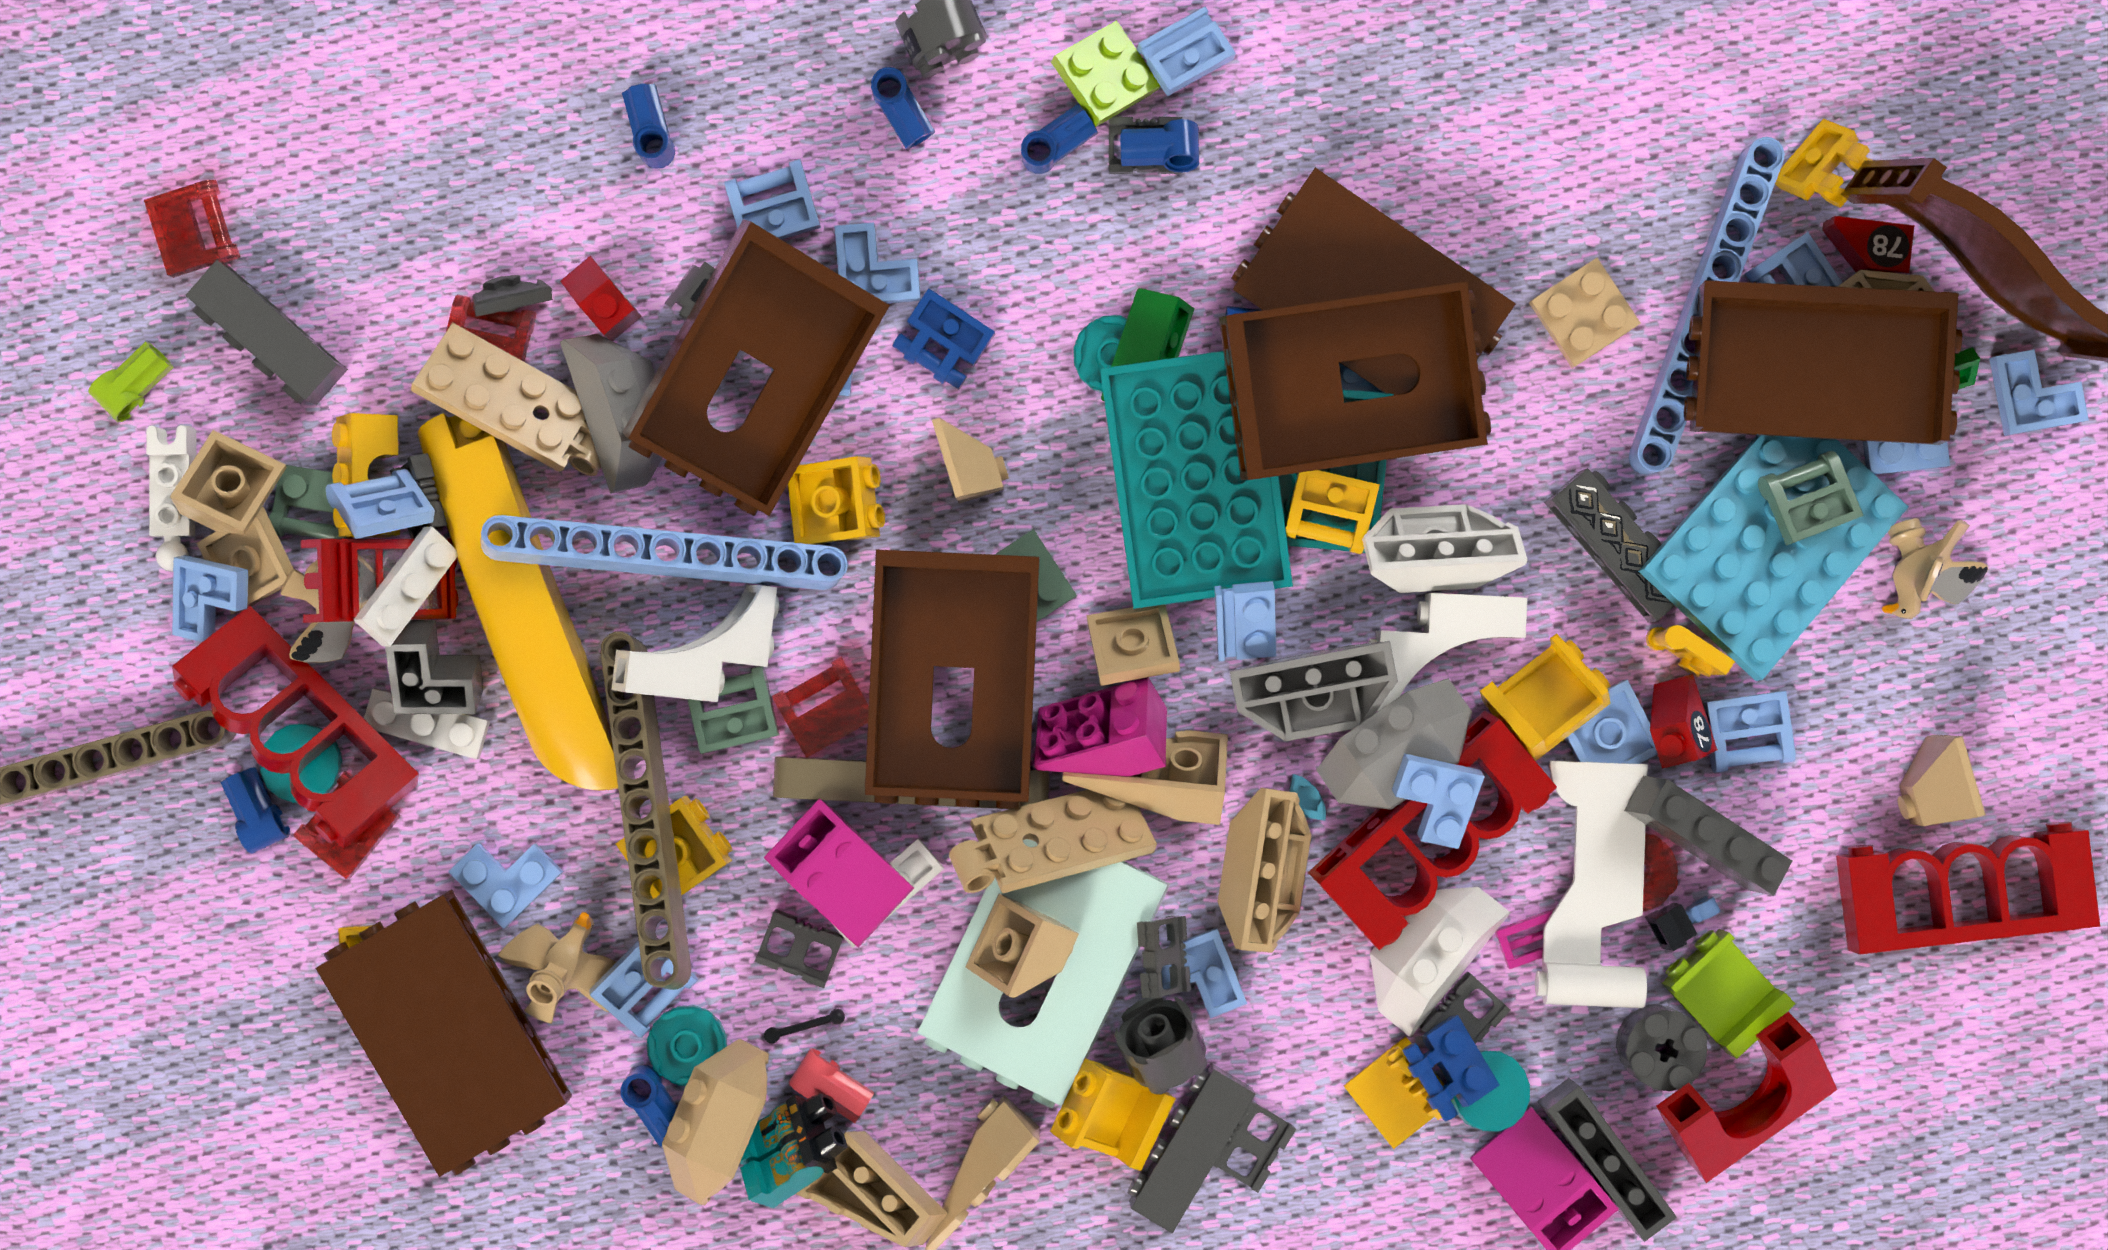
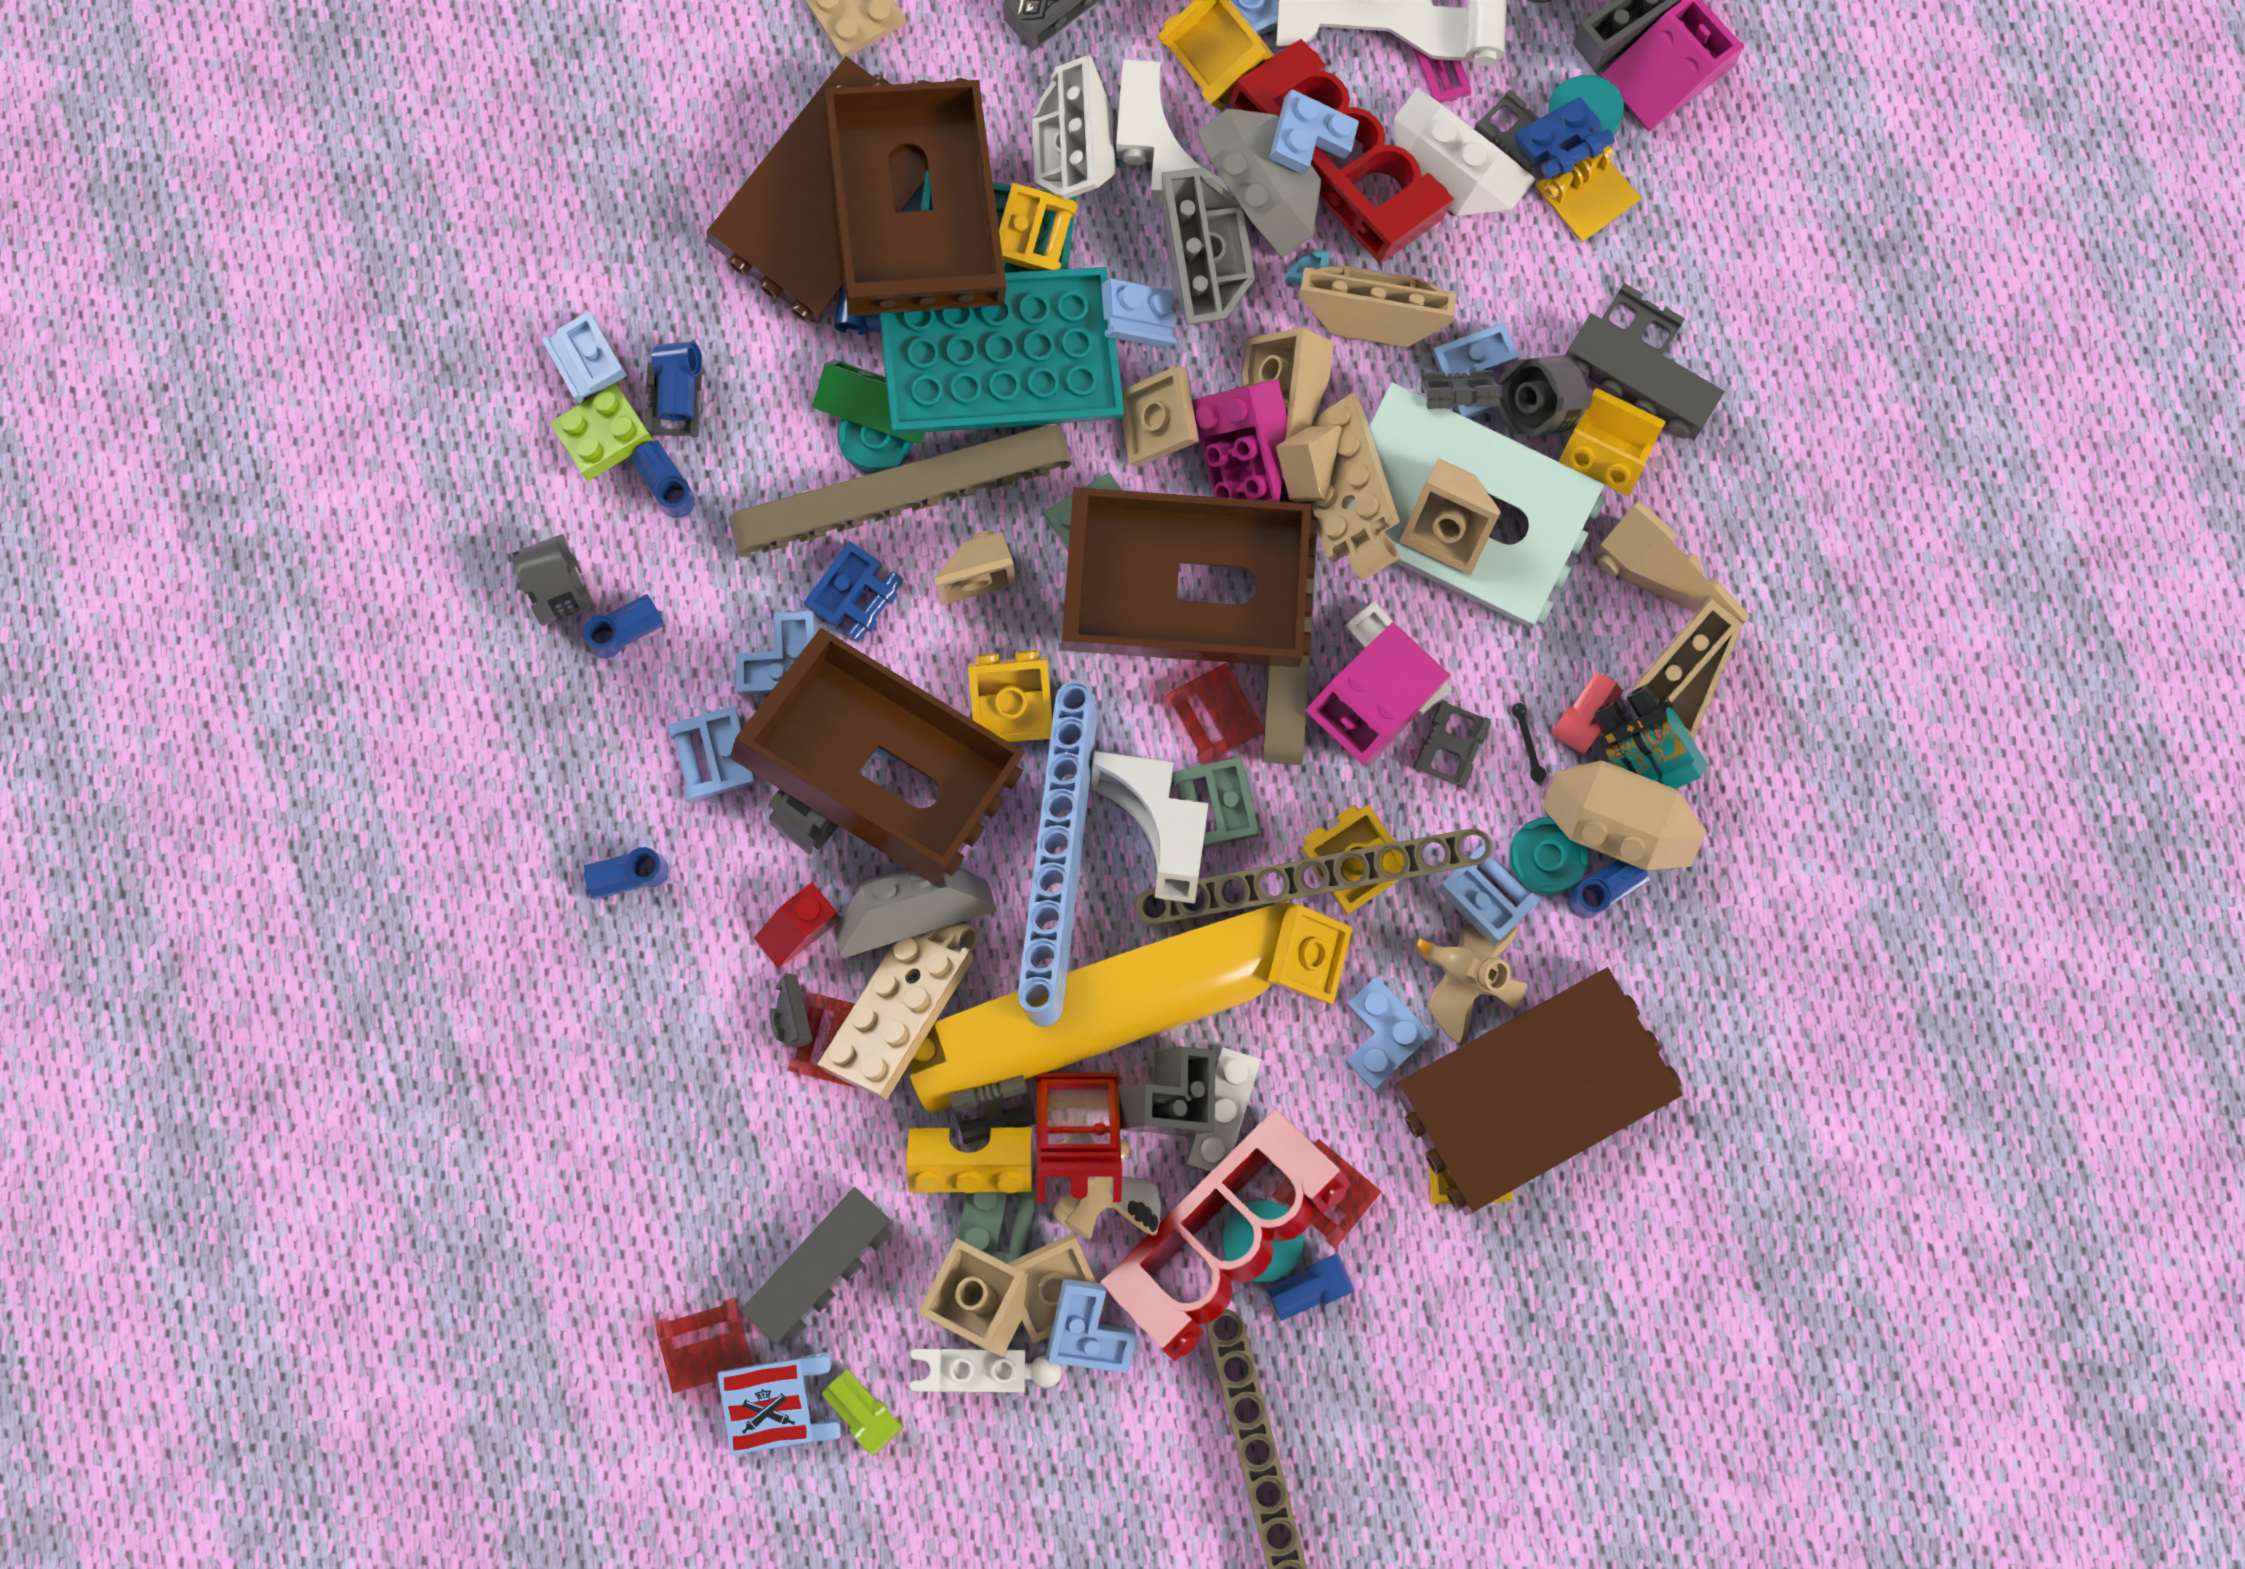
camera: 90 degrees left, 10 degrees down
(135, 294) = (769, 1405): none -> flag
(381, 504) = (1010, 1128): light blue plate -> none
(406, 586) = (1086, 1105): white plate -> none
(575, 806) = (1310, 953): none -> yellow plate
(1051, 382) = (898, 489): none -> dark tan beam
(1079, 800) = (1309, 462): none -> tan slope

